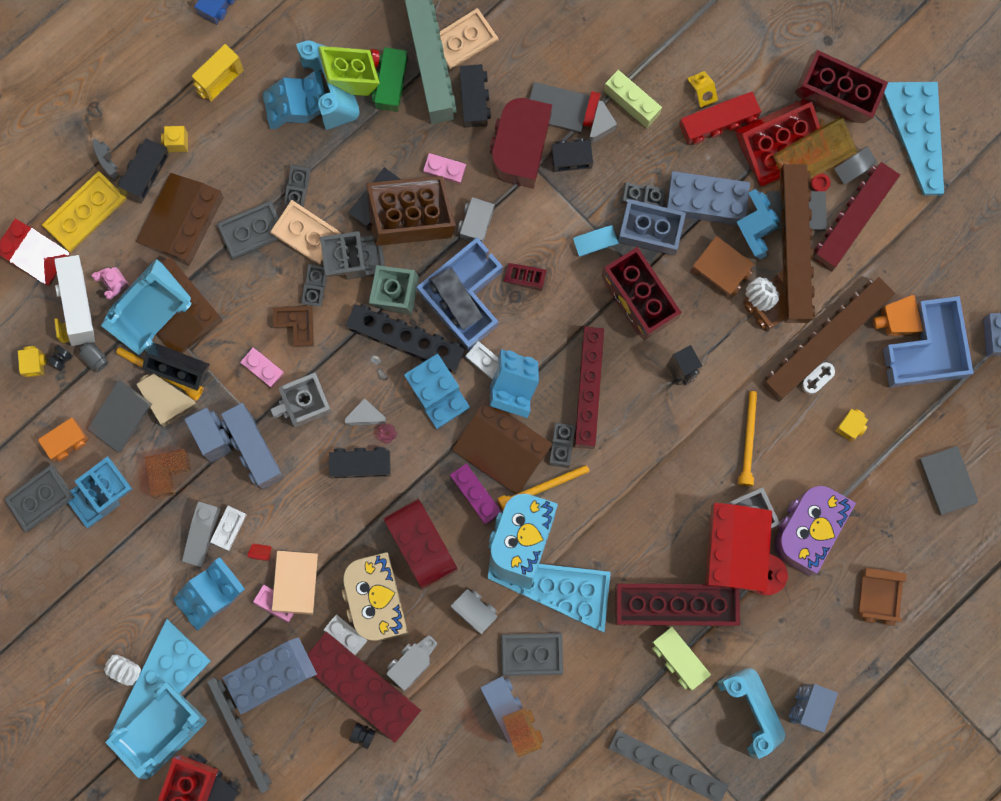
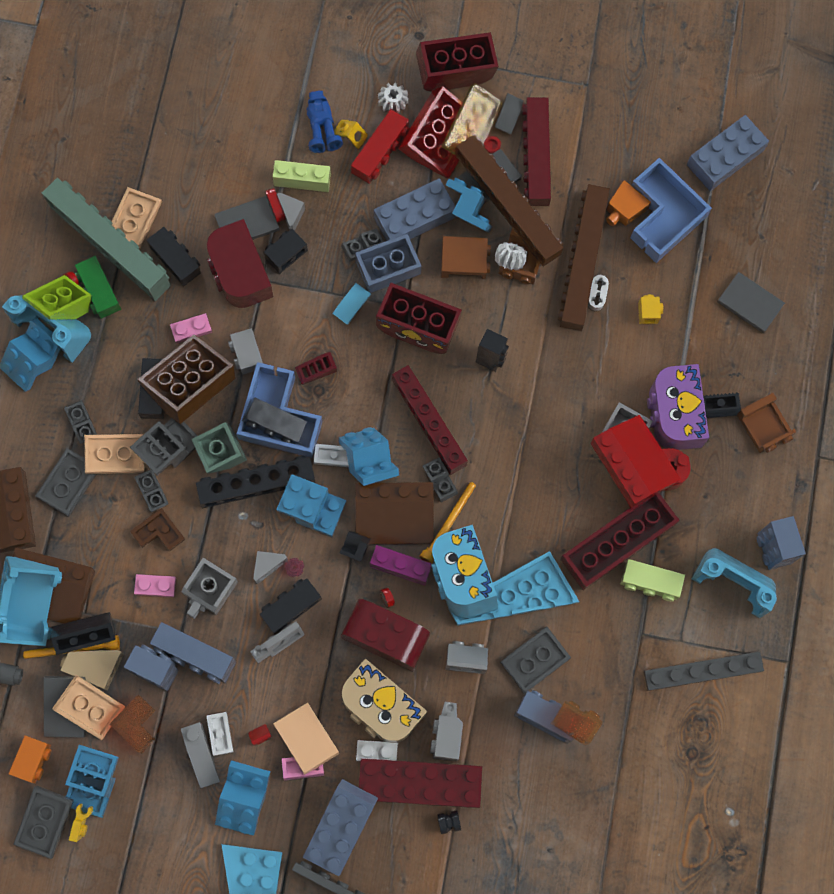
camera: 35 degrees left, 5 degrees down
(64, 522) = (79, 828): none -> yellow plate
(137, 430) = (88, 707): none -> light nougat tile
(328, 487) = (278, 642): none -> light grey hinge
(445, 513) = (387, 597): none -> red tile
(449, 451) = (355, 546): none -> black panel
(687, 55) = (320, 115): none -> blue piece
(745, 477) = (599, 405): light orange piece -> none
(759, 75) = (399, 95): none -> white gear
(851, 552) = (722, 405): none -> black brick
(918, 126) = (533, 53): medium azure wing -> none

